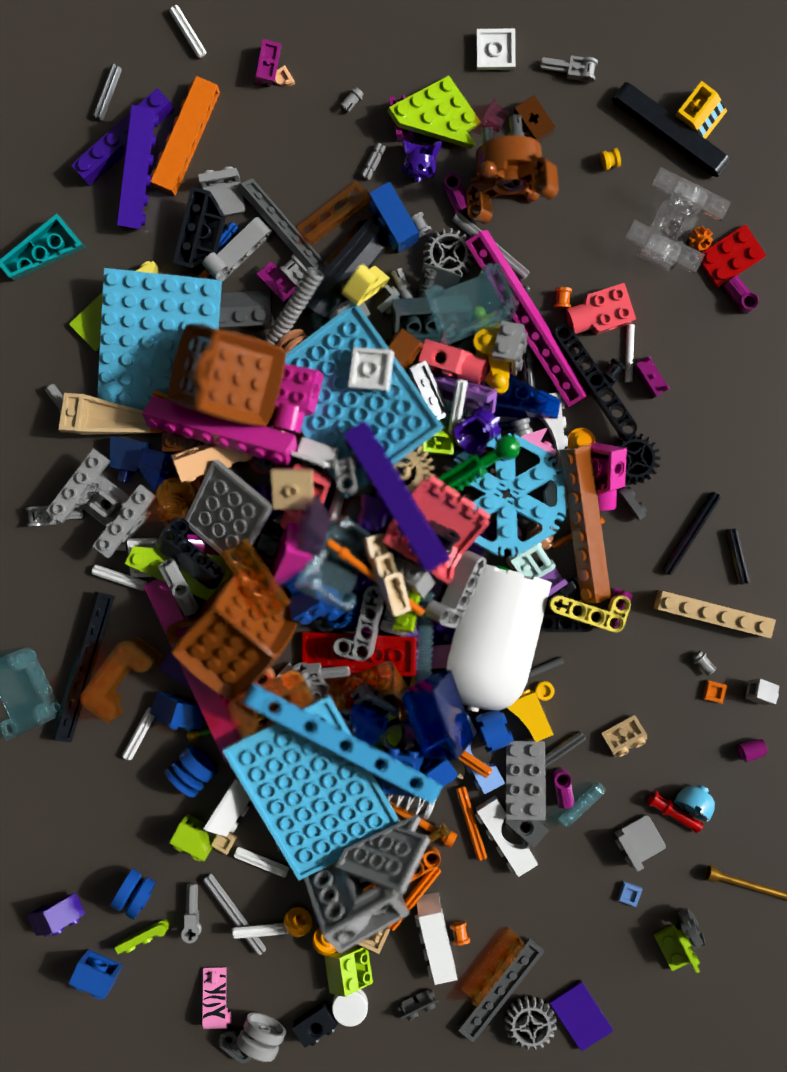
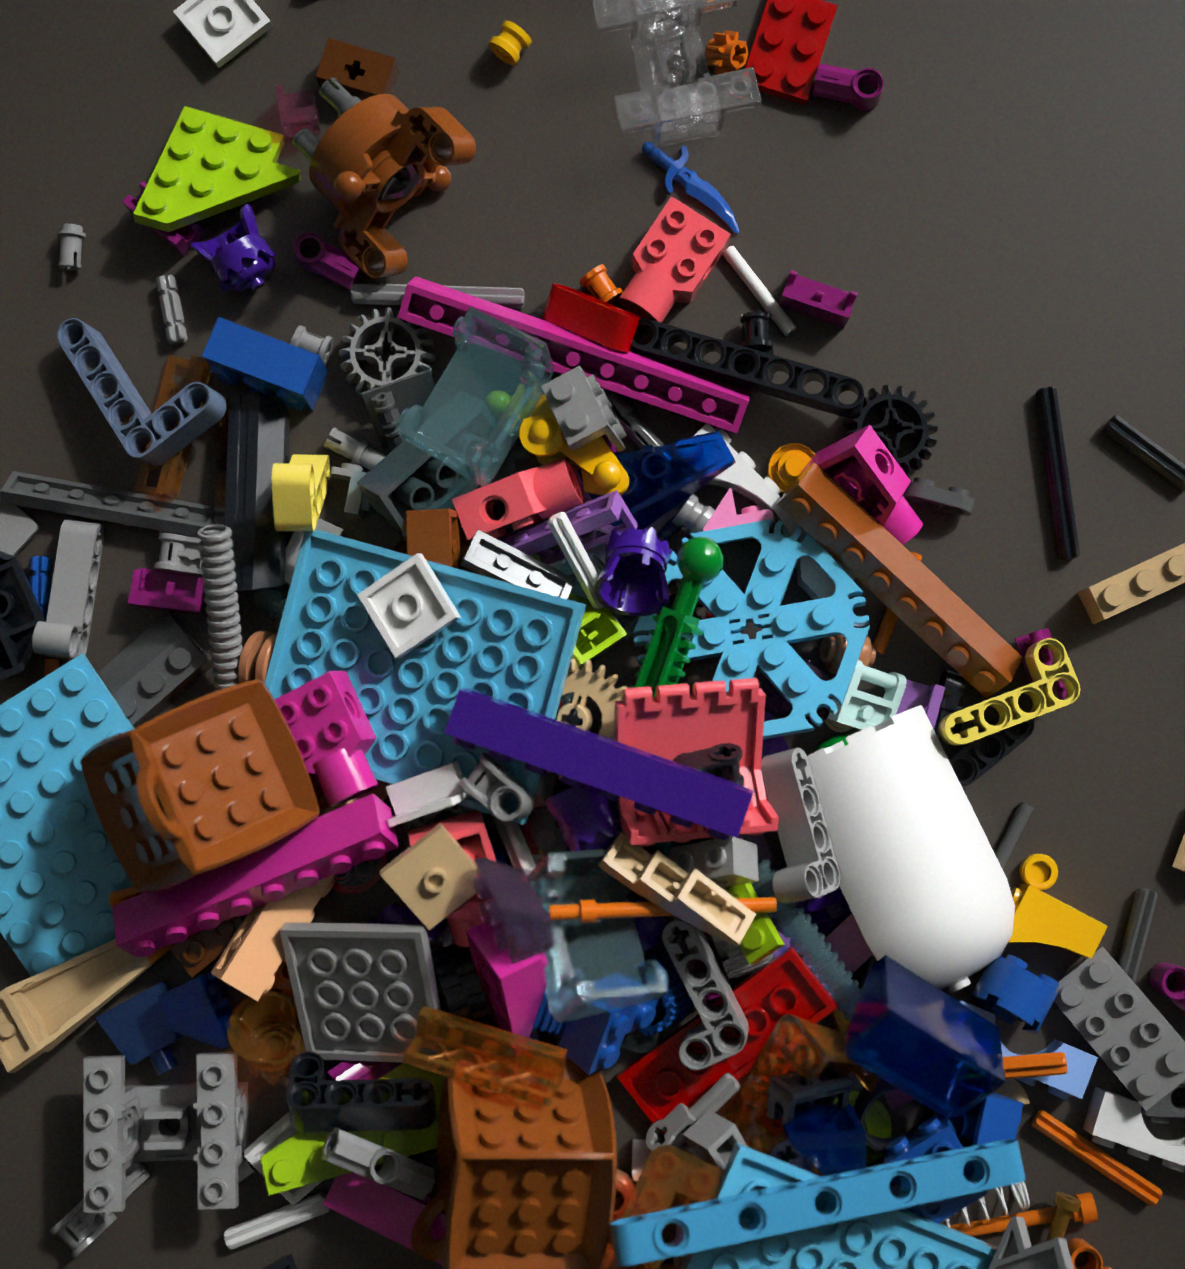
camera: 45 degrees left, 5 degrees down
(321, 686) = (713, 1139): none -> light grey brick
(323, 186) = (126, 400): none -> sand blue beam
(547, 307) = (590, 317): none -> red beam
(639, 286) = (691, 182): none -> blue piece

